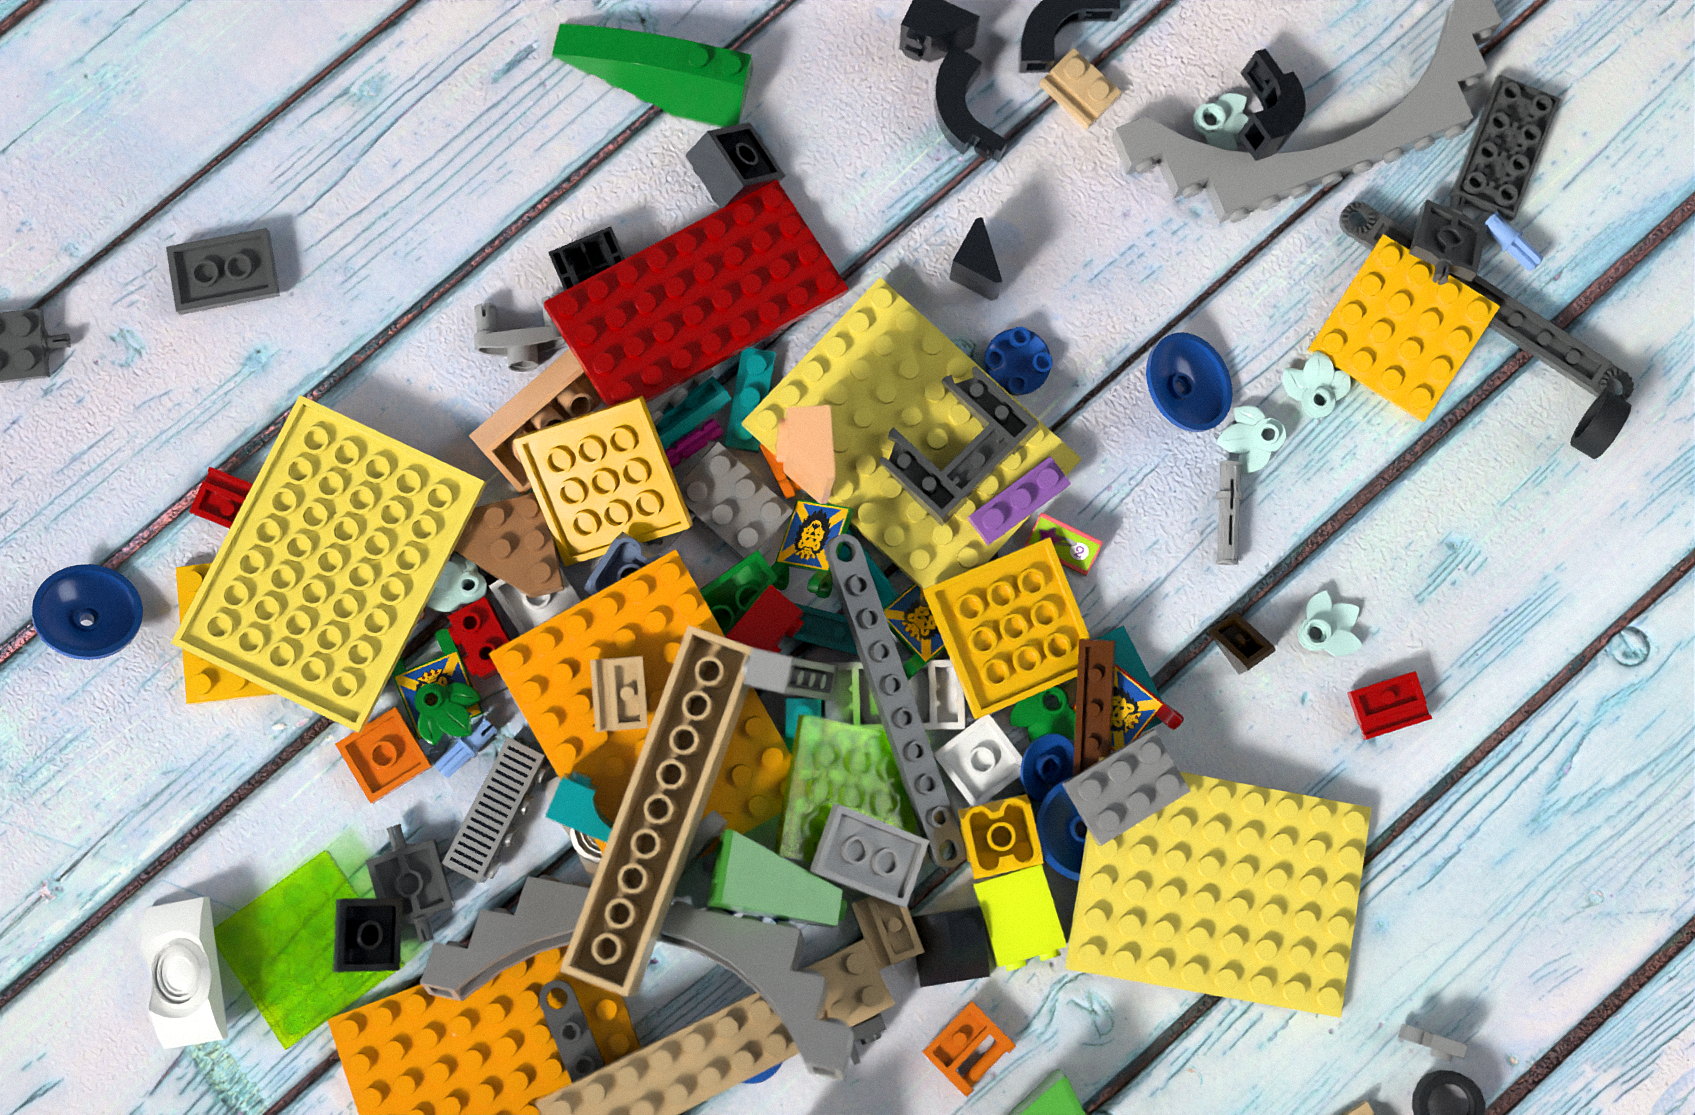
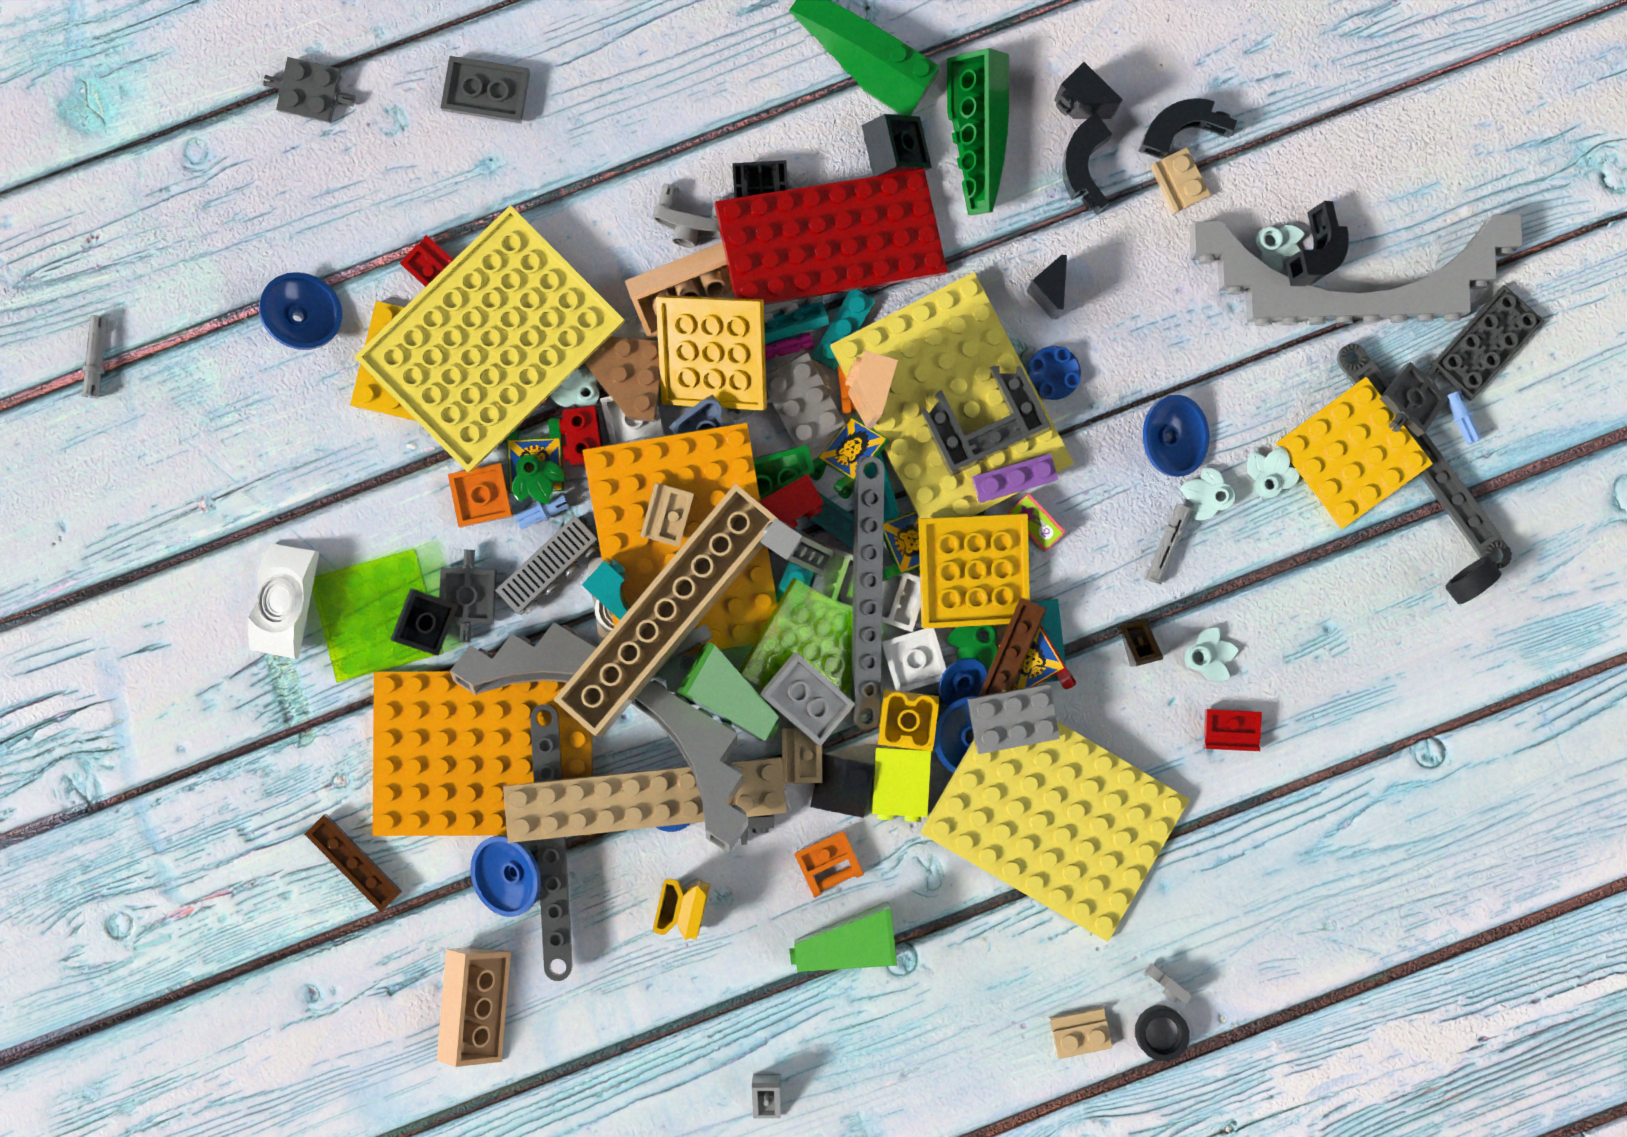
camera: 25 degrees right, 5 degrees up
(822, 100) = (980, 122): none -> green wedge

